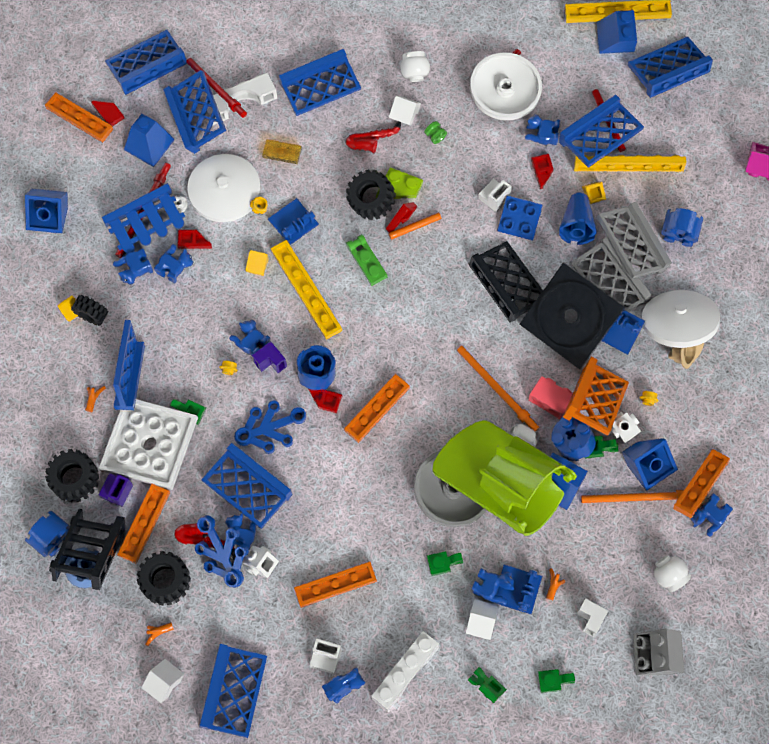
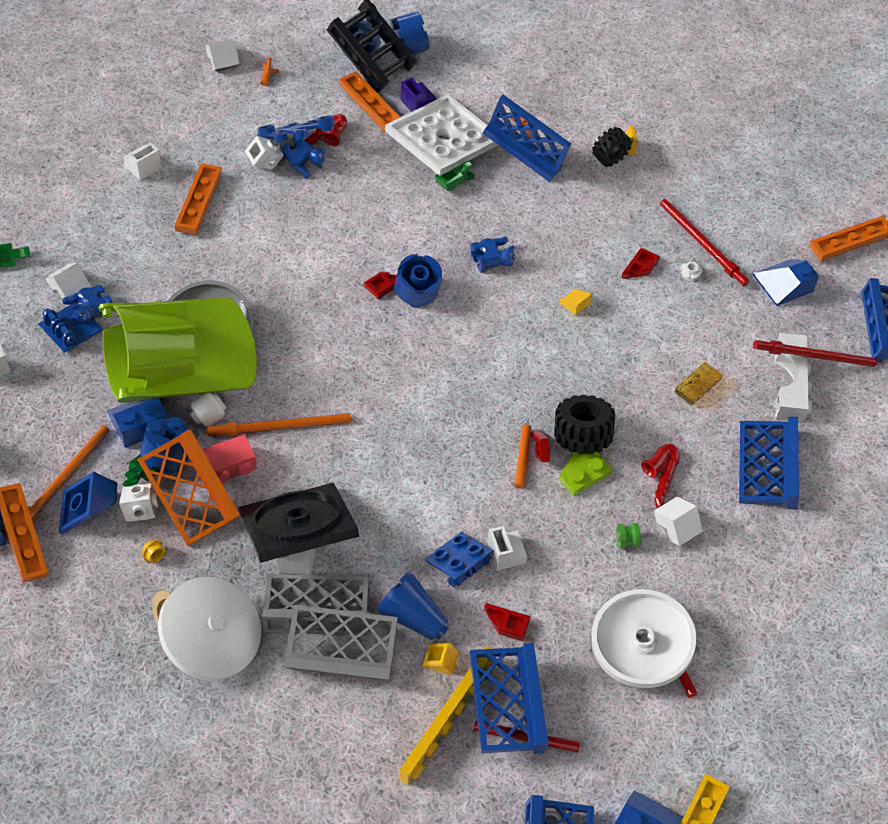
camera: 115 degrees right, 15 degrees down
(46, 210) = (753, 167): blue slope -> none
(82, 486) = (453, 72): black tyre -> none
(109, 112) = (844, 265): red tile -> none
(136, 266) = (640, 205): blue animal -> none
(147, 204) = (693, 237): blue fence -> none
(157, 563) = (307, 88): black tyre -> none
(169, 264) = (621, 233): blue animal -> none
(183, 121) = (791, 316): blue fence -> none
(215, 687) = (184, 82): blue fence -> none
(223, 187) = (686, 317): white dish -> none
(228, 367) = (475, 224): yellow plate -> none
(256, 471) = (349, 194): blue fence -> none
(259, 201) = (643, 326): yellow plate -> none
(267, 427) = (394, 205): blue plant -> none
(269, 356) = (458, 256): dark purple piece -> none
(293, 221) = (603, 352): blue hinge -> none
(306, 289) = (515, 322): yellow plate -> none
(343, 685) = (105, 154): blue animal -> none
(366, 260) = (513, 392): bright green plate -> none
(376, 408) = (340, 314): orange plate -> none
(404, 671) = (76, 203): white arch -> none
(414, 66) = (732, 559): white piece -> none
(440, 562) = (147, 284): green plate -> none
(494, 286) = (397, 482): black fence -> none
(545, 128) = (557, 651): blue animal -> none
(554, 584) = (47, 356): orange bar -> none
(624, 332) = (248, 568): blue hinge -> none
(682, 226) = (319, 708): blue brick -> none

